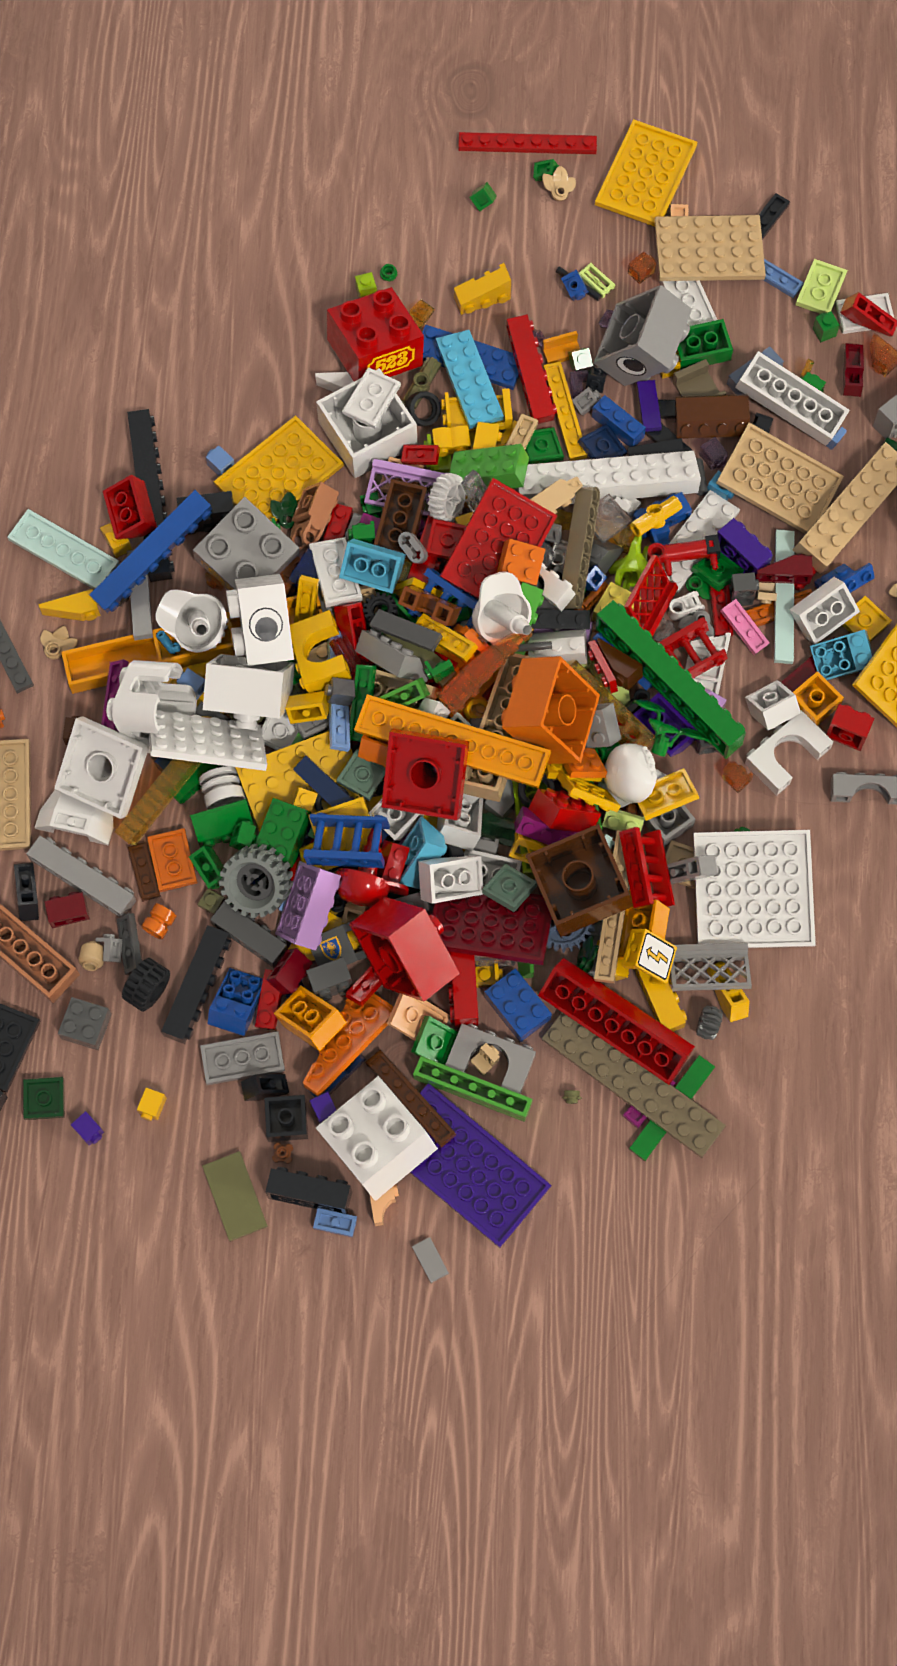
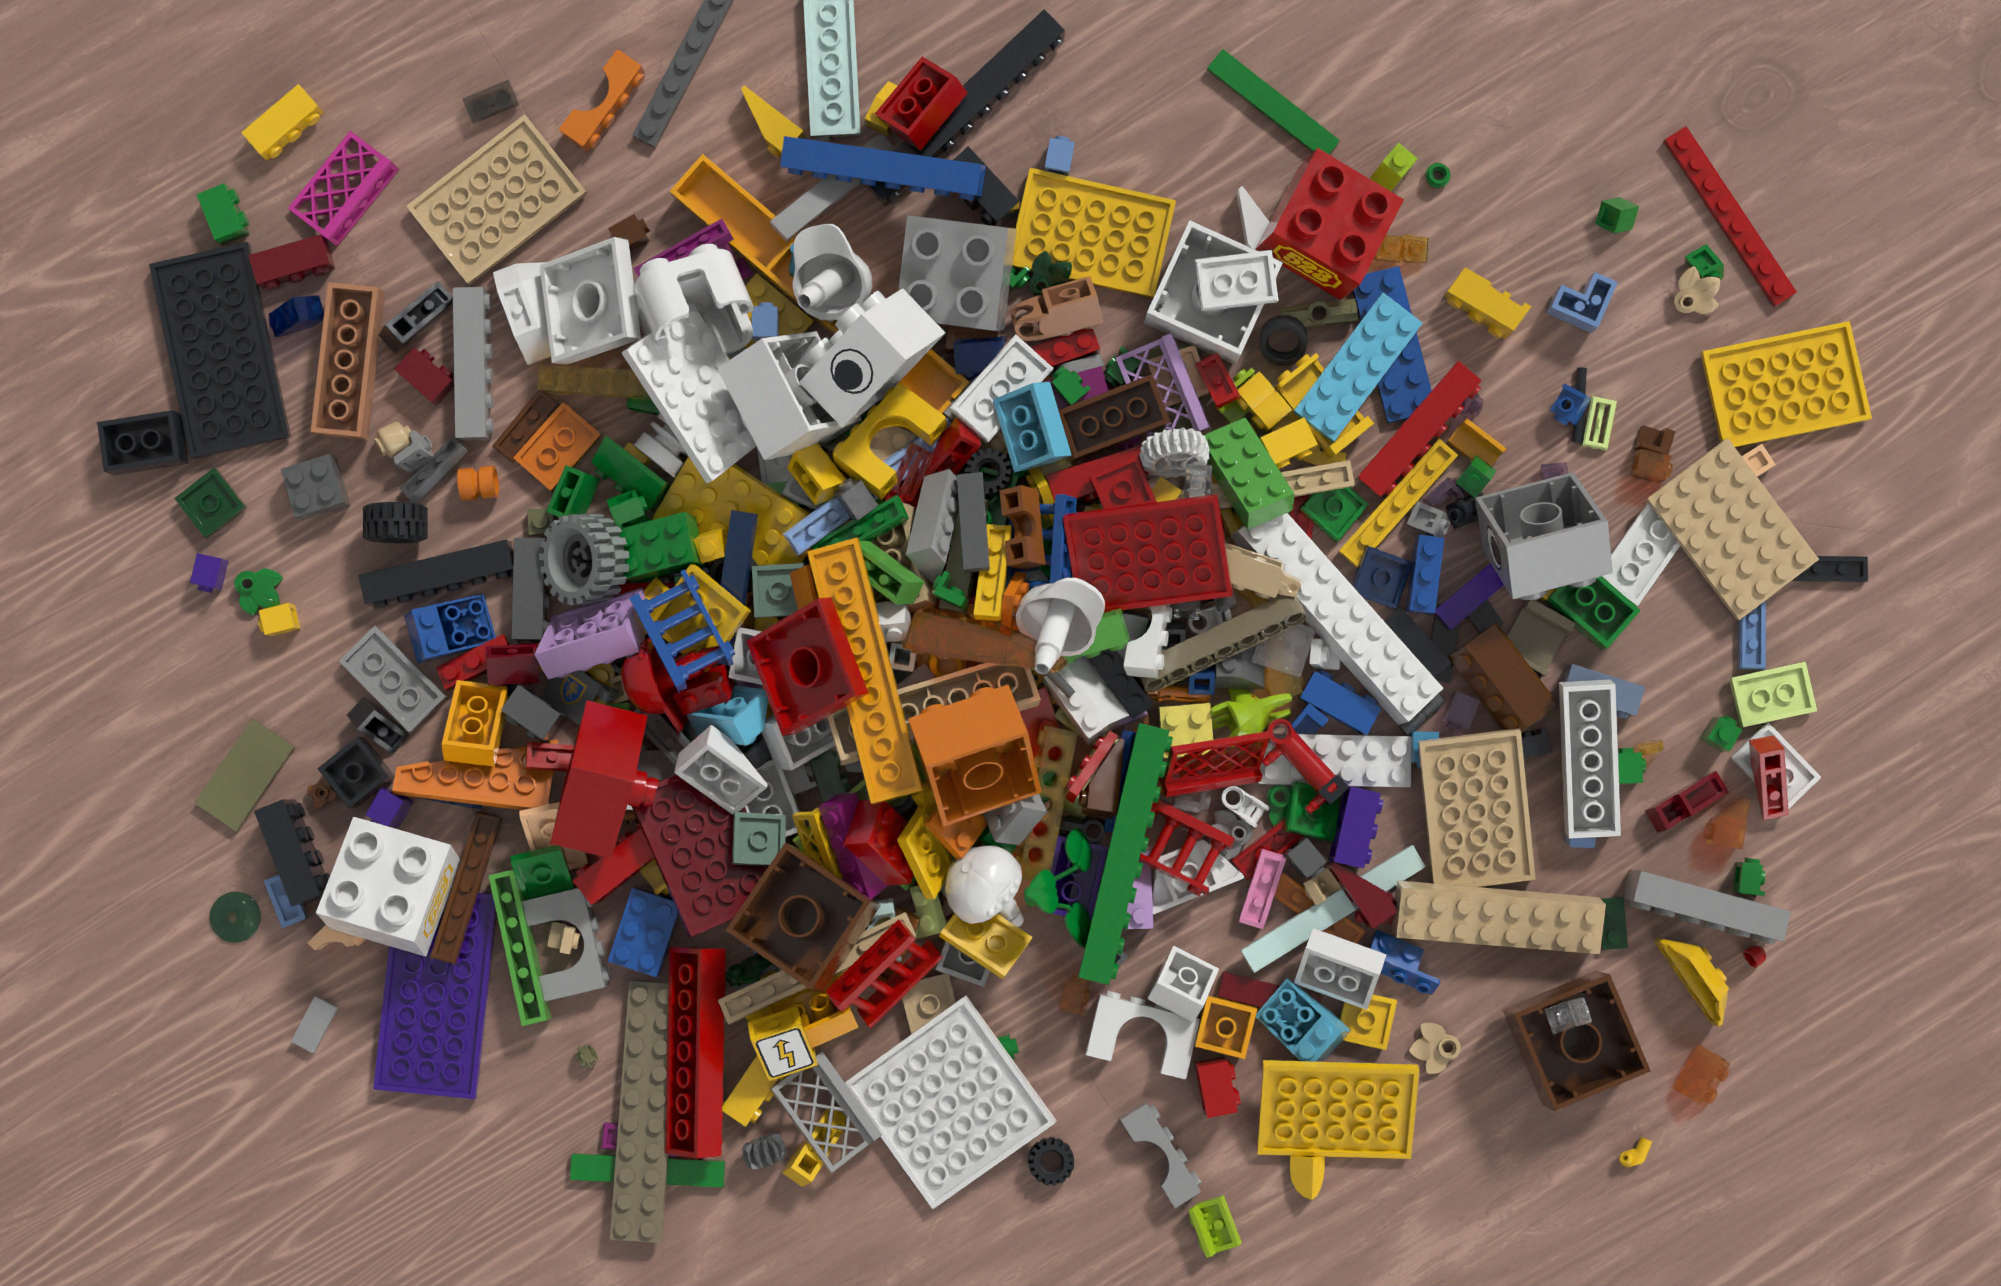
camera: 55 degrees right, 15 degrees up
(58, 640) = (724, 137): tan plate -> none
(125, 1106) = (261, 591): none -> green plate
(277, 332) = (1271, 103): none -> green tile
(306, 598) = (944, 381): yellow plate -> none
(326, 1276) = (247, 917): none -> clear green dish
(416, 545) = (1084, 457): light grey beam -> none
(522, 561) = (1141, 595): orange brick -> none
(523, 242) = (1585, 308): none -> medium blue brick
(630, 254) = (1654, 439): none -> reddish brown panel
(655, 516) = (1323, 701): yellow piece -> none
(692, 869) = (918, 1024): light grey slope -> none
(842, 851) = (1043, 1175): none -> black tyre

